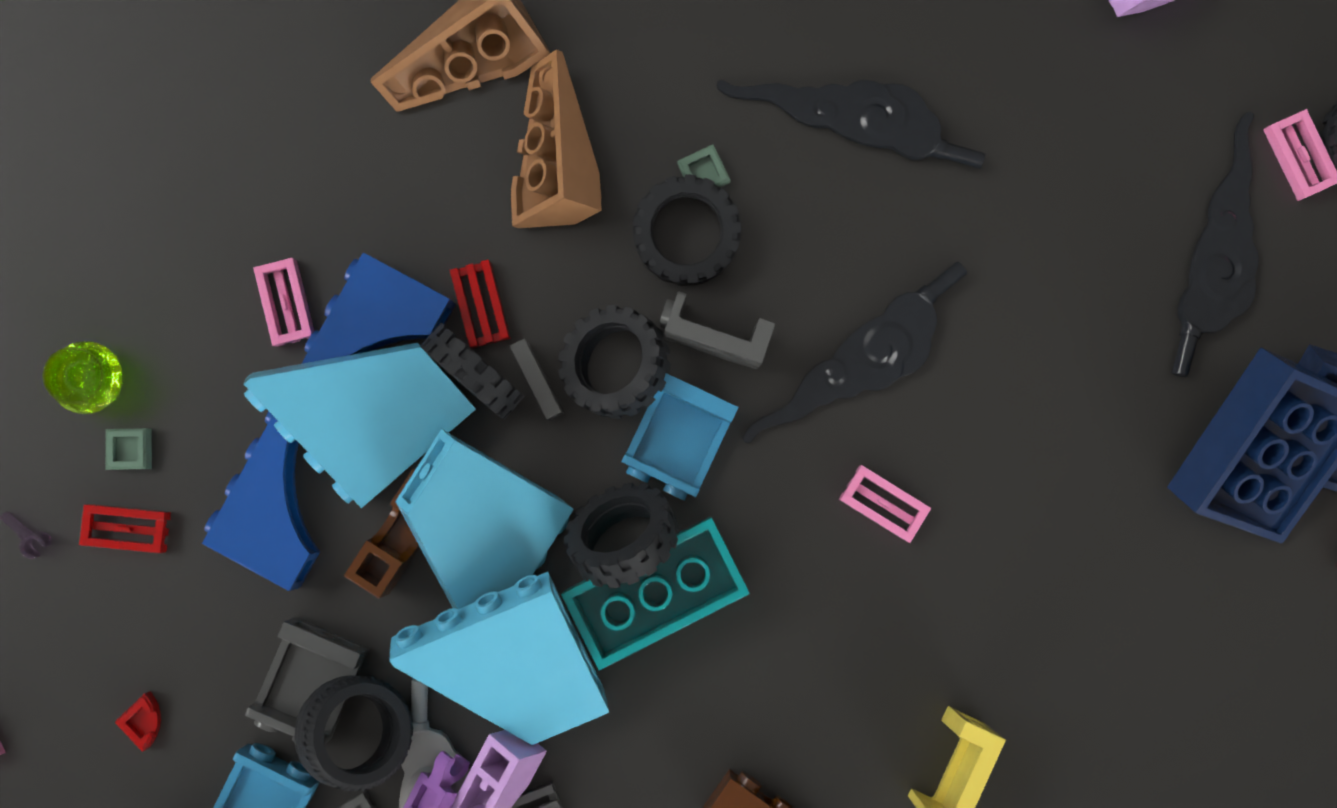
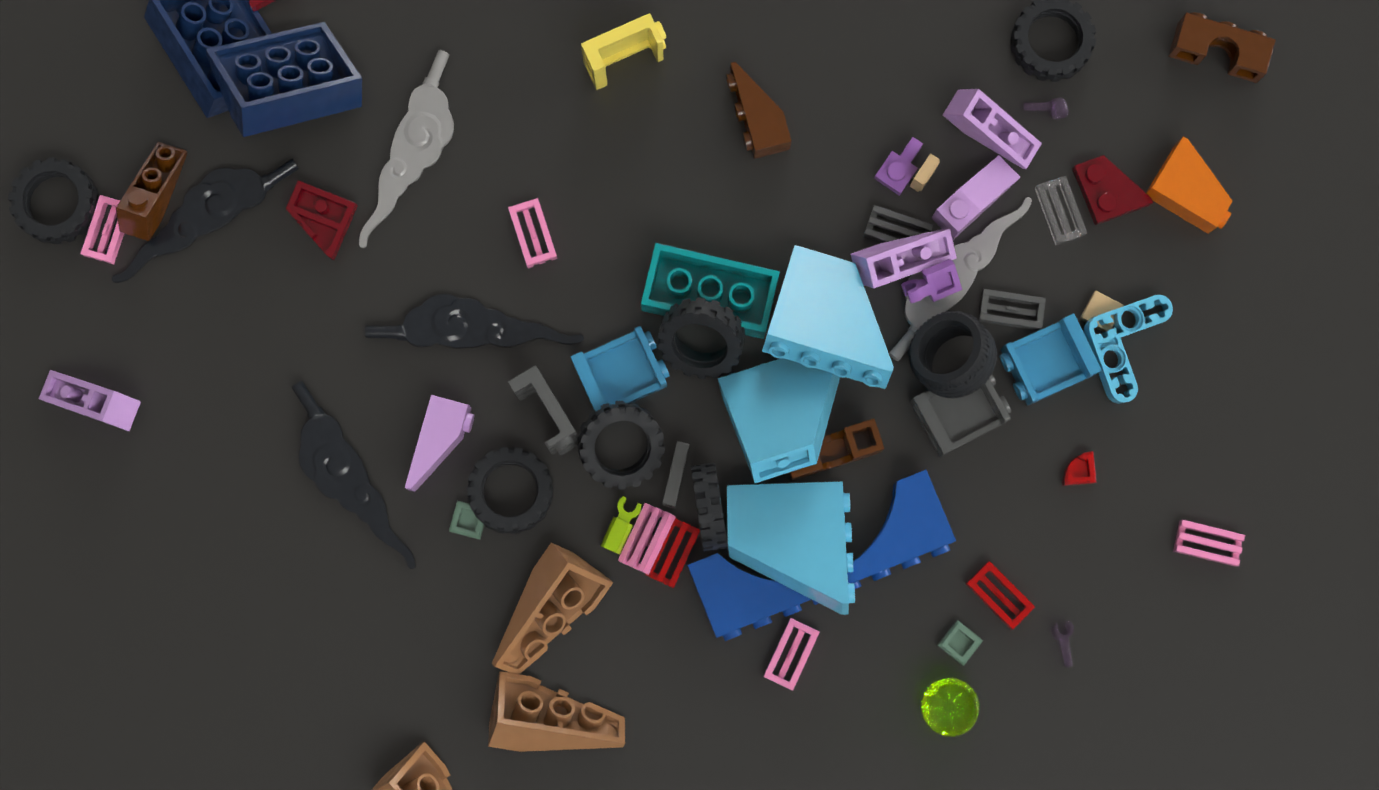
camera: 145 degrees left, 5 degrees down
(529, 291) = (642, 535): none -> bright pink tile
(550, 283) = (620, 528): none -> lime bar
(803, 231) = (440, 434): none -> lavender slope
(1078, 496) = (415, 144): none -> light grey piece
(1106, 343) = (321, 216): none -> dark red wing
(1295, 223) = (150, 192): none -> reddish brown slope

